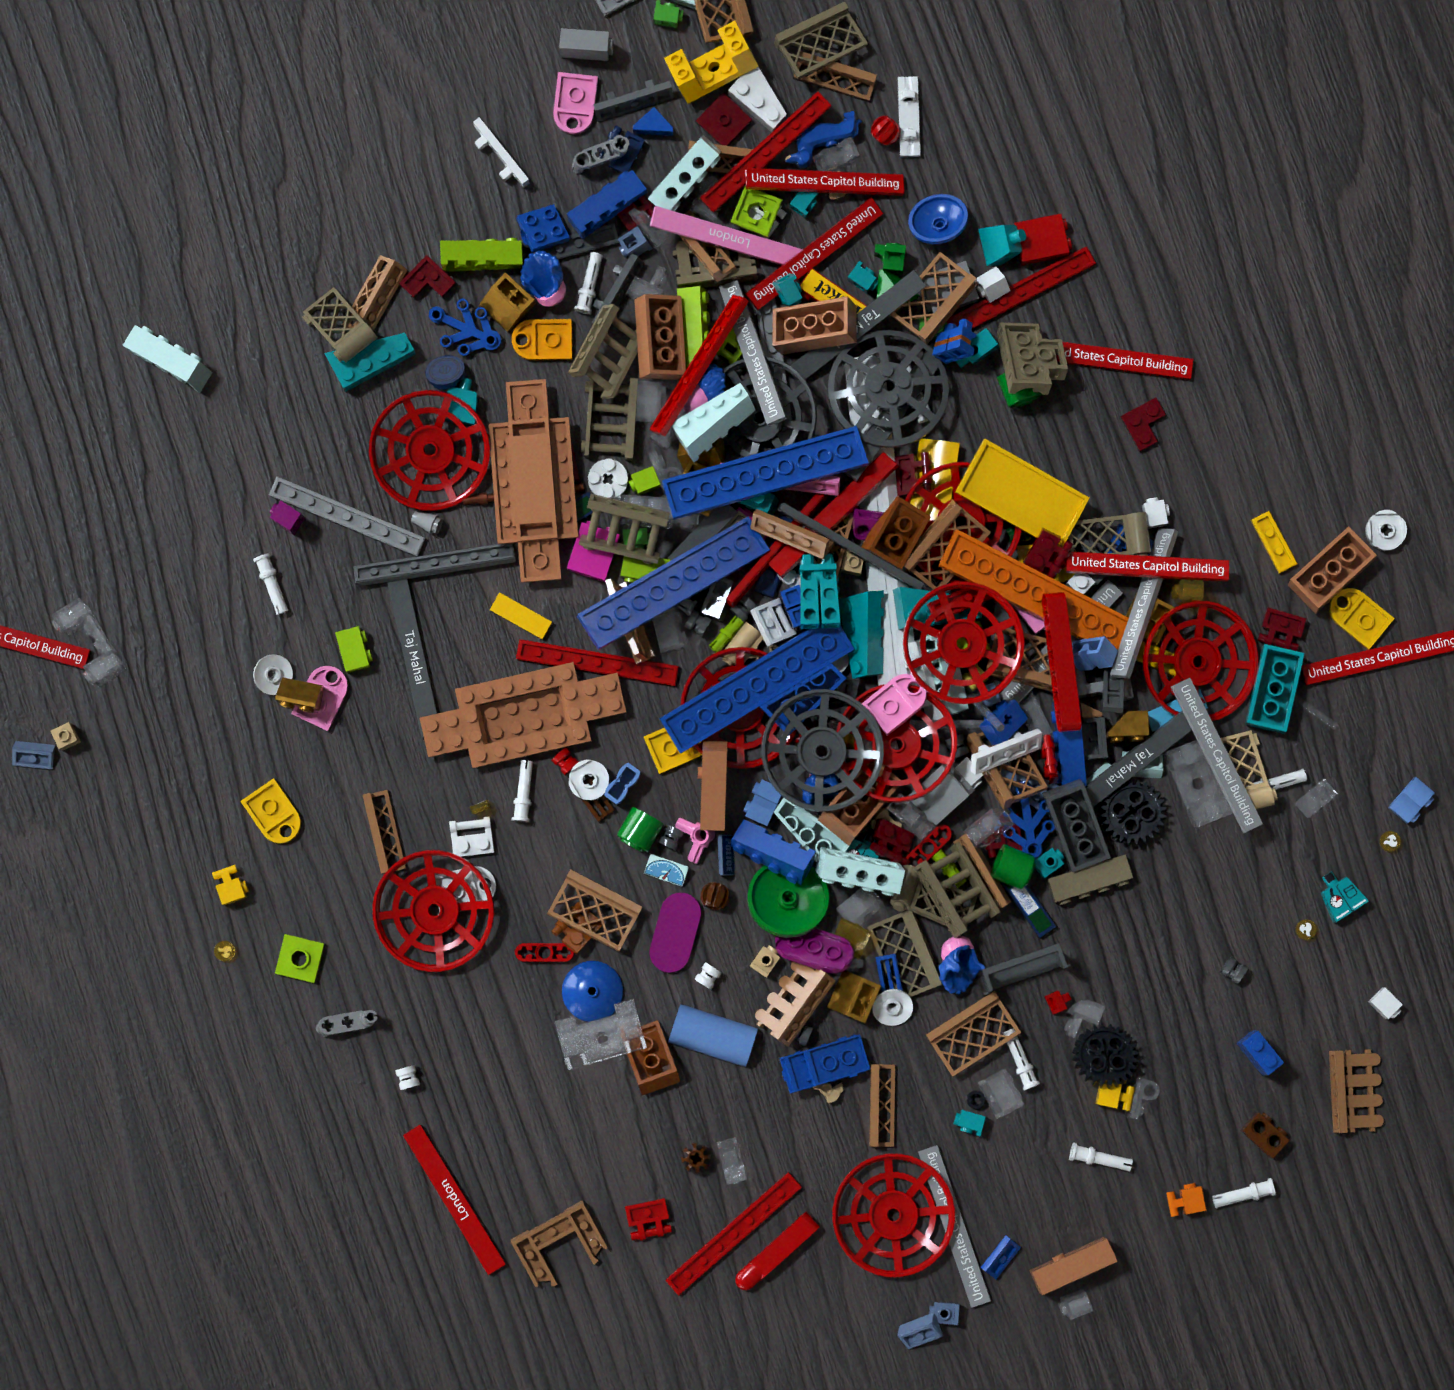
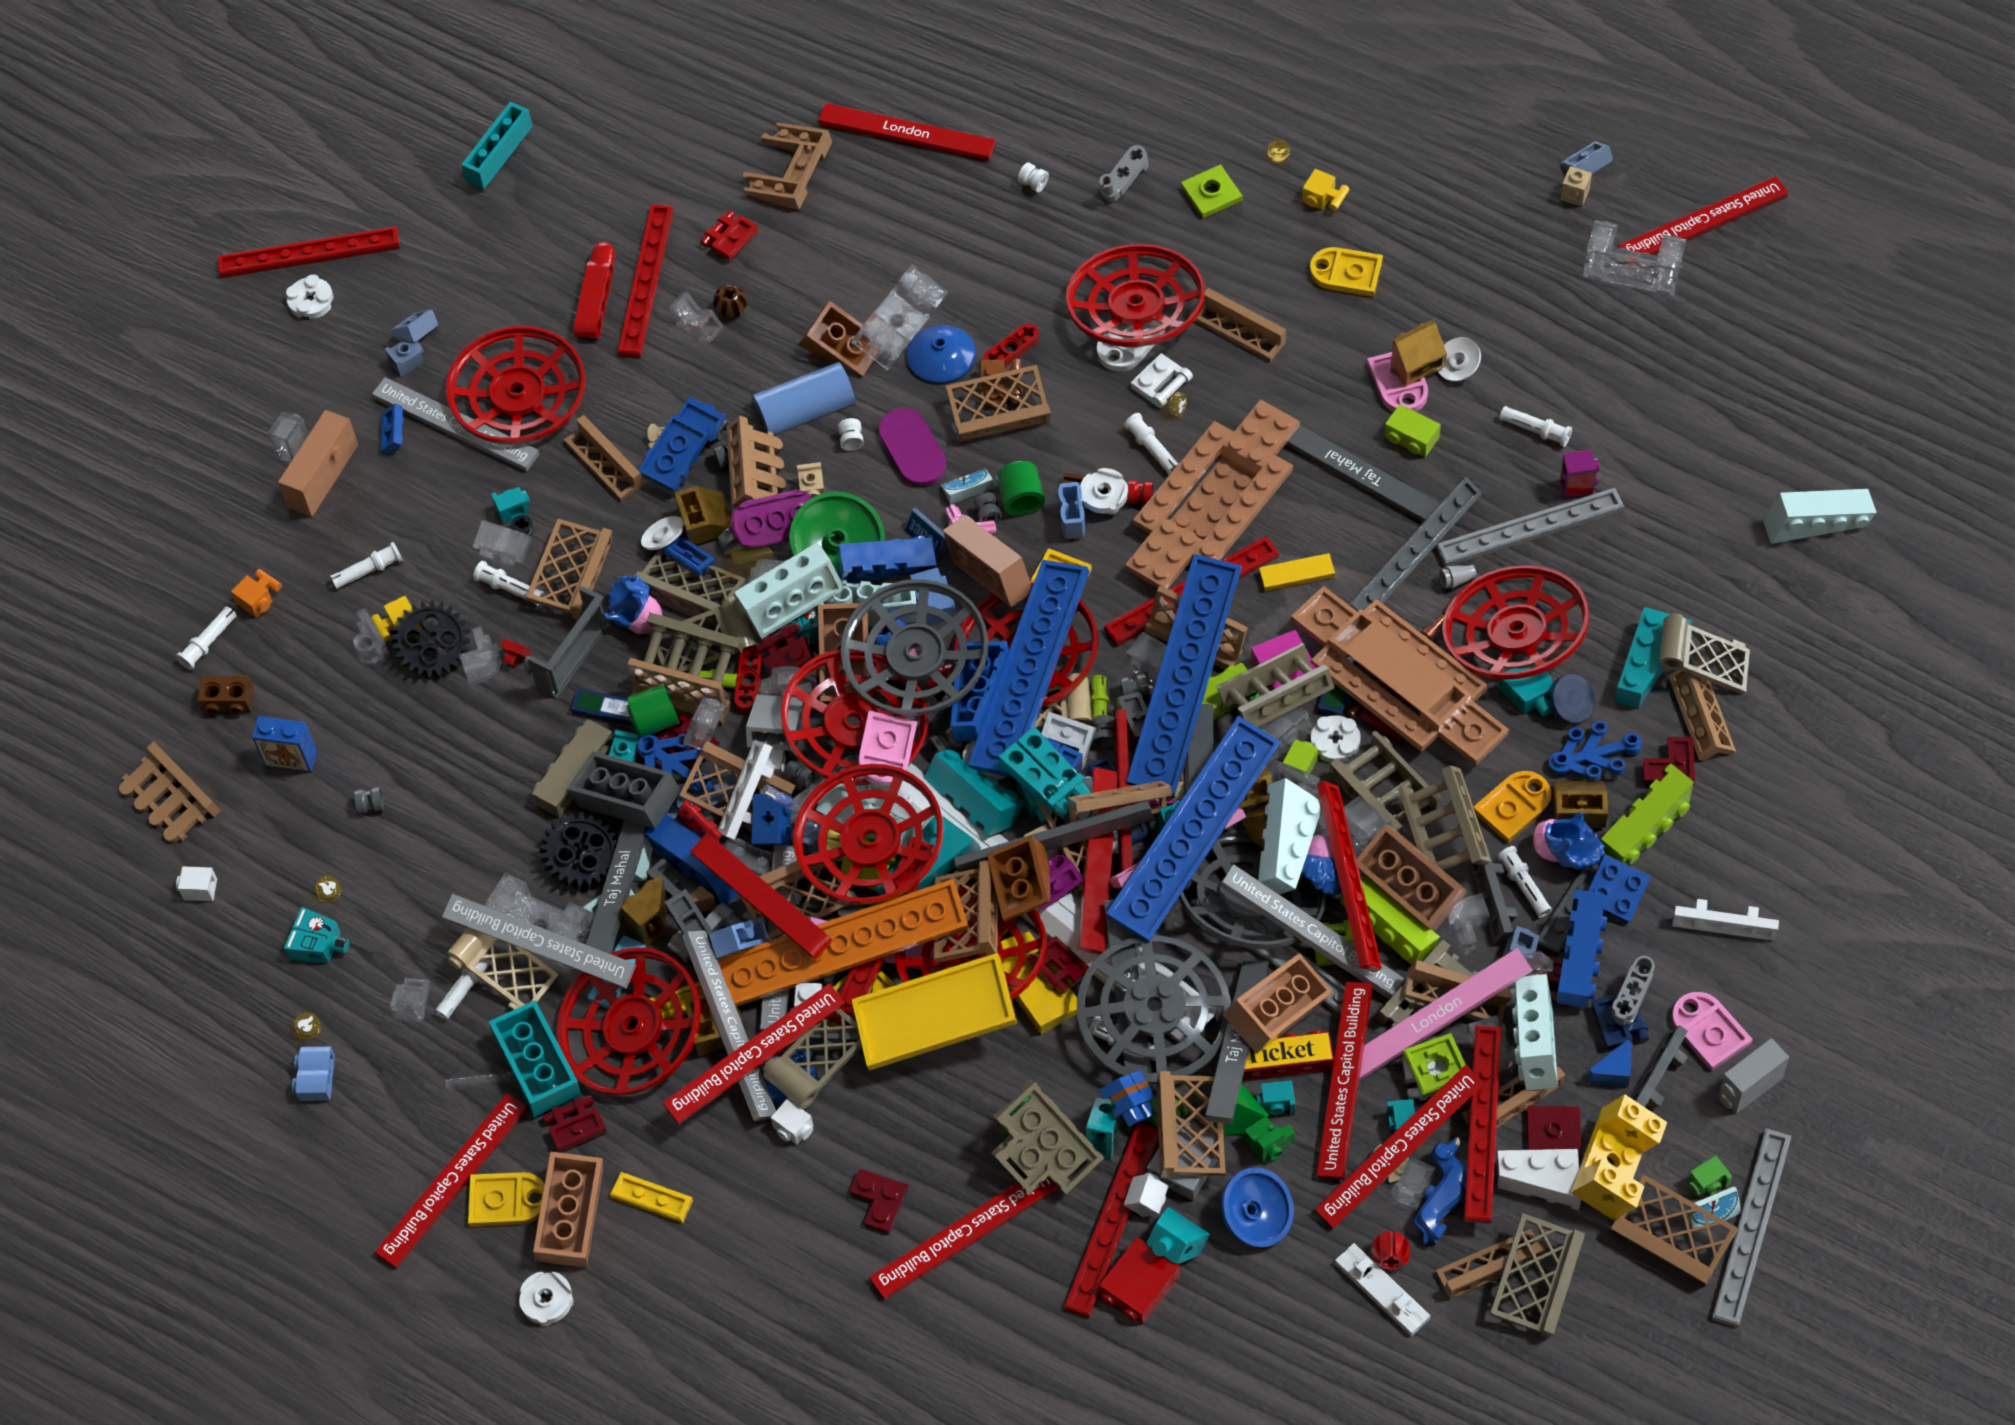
camera: 145 degrees right, 25 degrees down
(715, 896) = (903, 494): reddish brown piece -> none
(788, 290) = (1335, 1017): teal brick -> none
(1043, 549) = (868, 981): dark red plate -> none
(1187, 591) = (692, 1065): clear yellow brick -> none

